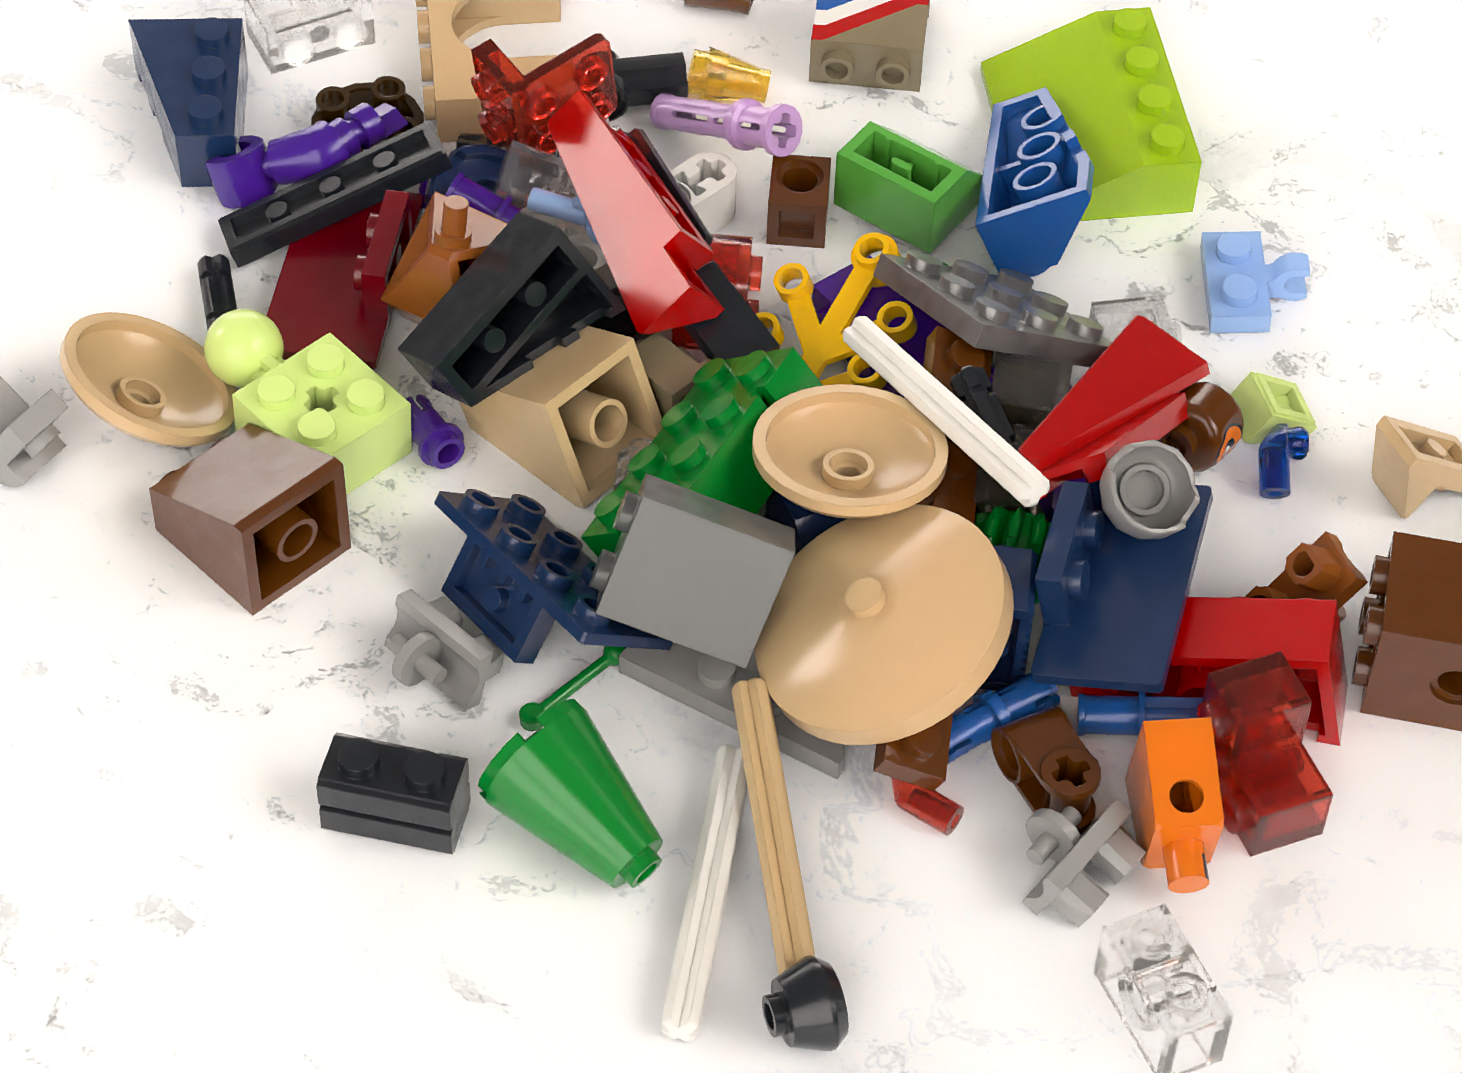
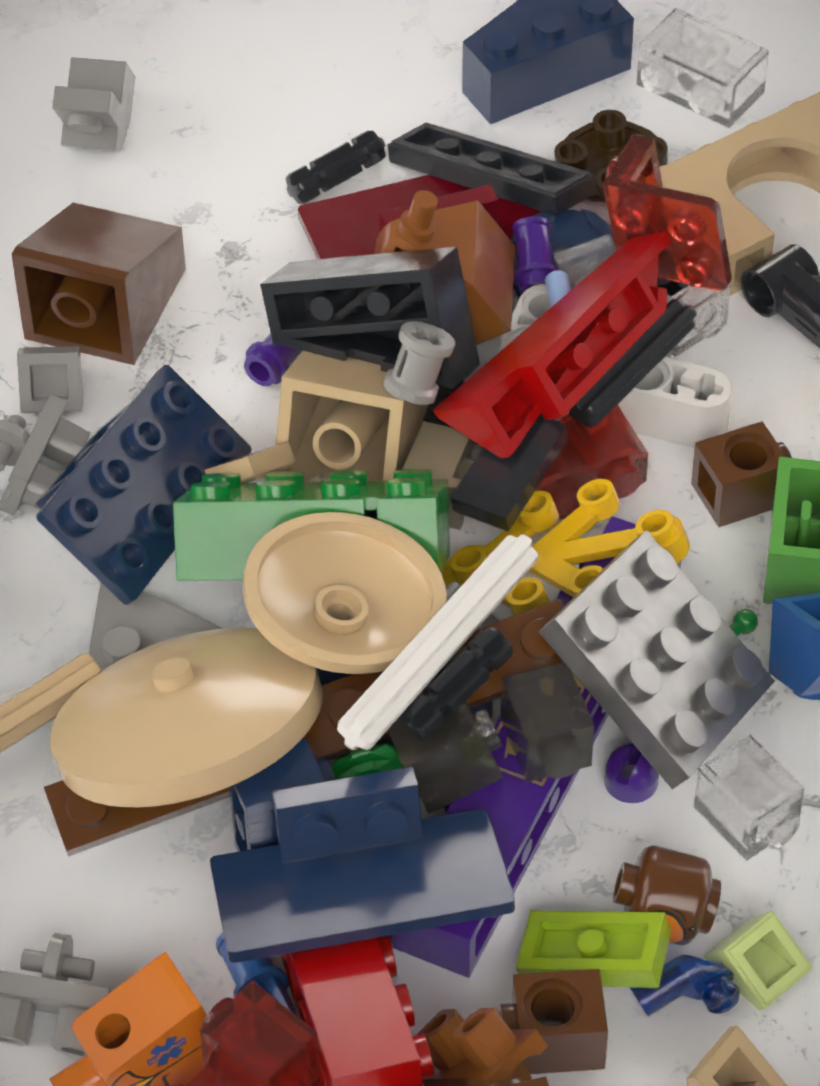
camera: 65 degrees right, 0 degrees up
(146, 380) = (208, 133): tan dish -> none
(295, 156) = (507, 122): dark purple piece -> none
(314, 397) = (222, 254): yellowish green brick -> none
(348, 602) = (49, 372): none -> light grey tile
(531, 710) = (16, 554): green hinge -> none
(577, 495) = (257, 464): none -> tan tile
(608, 325) = (418, 362): none -> light grey bush
(680, 115) = (778, 381): lavender pin -> none
(693, 570) = (146, 548): brick -> none
(927, 806) = (64, 871): clear red arm -> none
(993, 709) = (174, 862): blue pin -> none
(1048, 763) = (154, 920): reddish brown piece -> none
(1117, 402) = (575, 788): red wedge -> none
(1148, 490) = (442, 837): light grey hair -> none
(1239, 475) = (623, 945): none -> lime plate
(1275, 530) = (568, 997): none -> reddish brown brick

